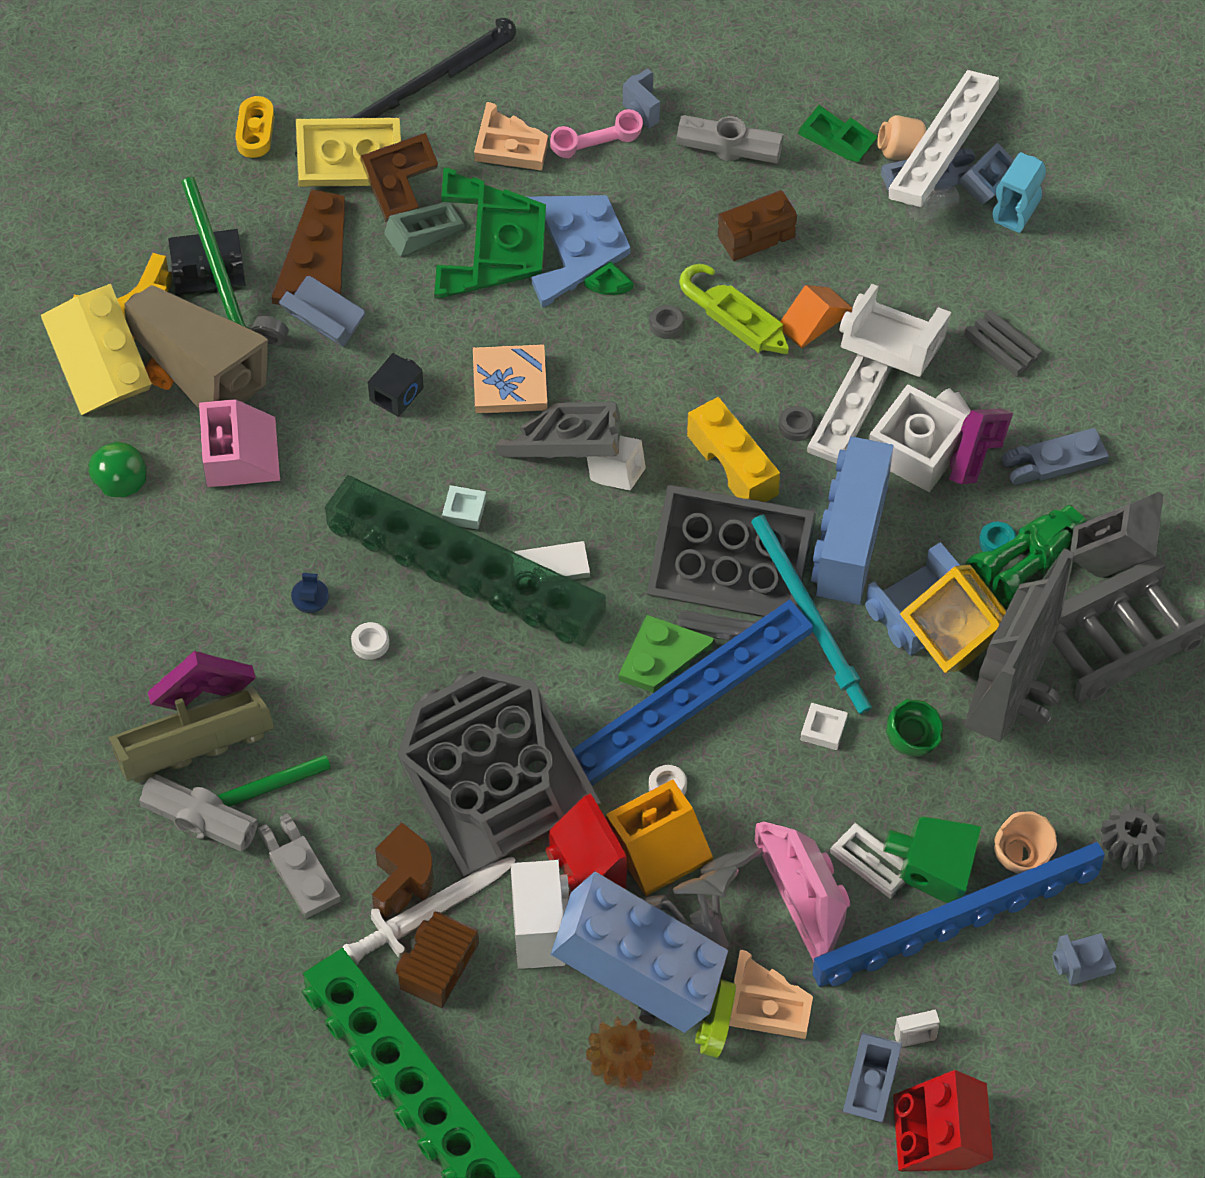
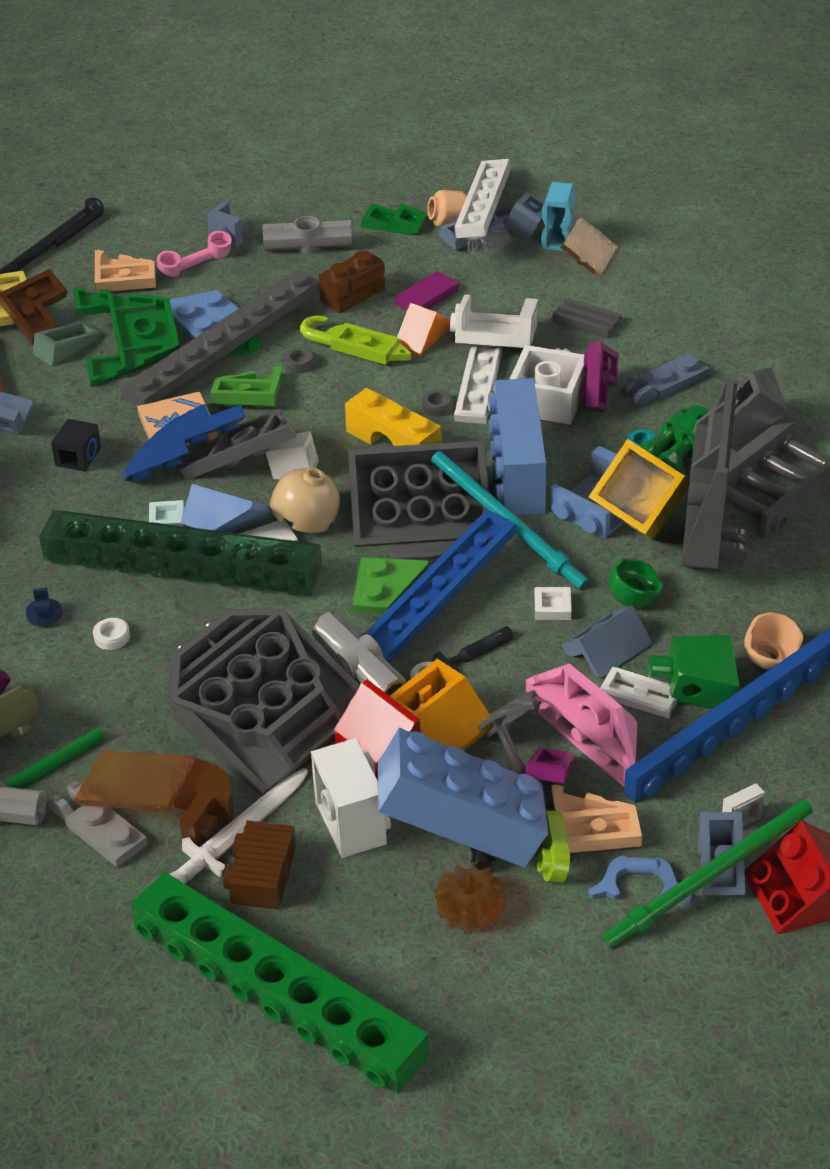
camera: 15 degrees left, 15 degrees down
(342, 835) = (135, 780): none -> clear orange piece
(487, 415) = (169, 443): none -> blue slope
(522, 515) = (221, 511): none -> medium blue slope
(590, 273) = (220, 339): none -> dark grey plate
(598, 752) = (356, 654): none -> light grey piece
(599, 350) = (247, 389): none -> bright green wing
(610, 529) = (306, 499): none -> tan cylinder
(723, 762) = (477, 648): none -> black piece
(746, 928) = (550, 765): none -> magenta tile
(773, 1120) = (641, 917): none -> green bar
(796, 1060) = (623, 865): none -> medium blue helmet
(837, 258) = (428, 291): none -> magenta tile
(862, 791) = (610, 641): none -> sand blue panel
(1042, 240) = (589, 246): none -> clear orange piece

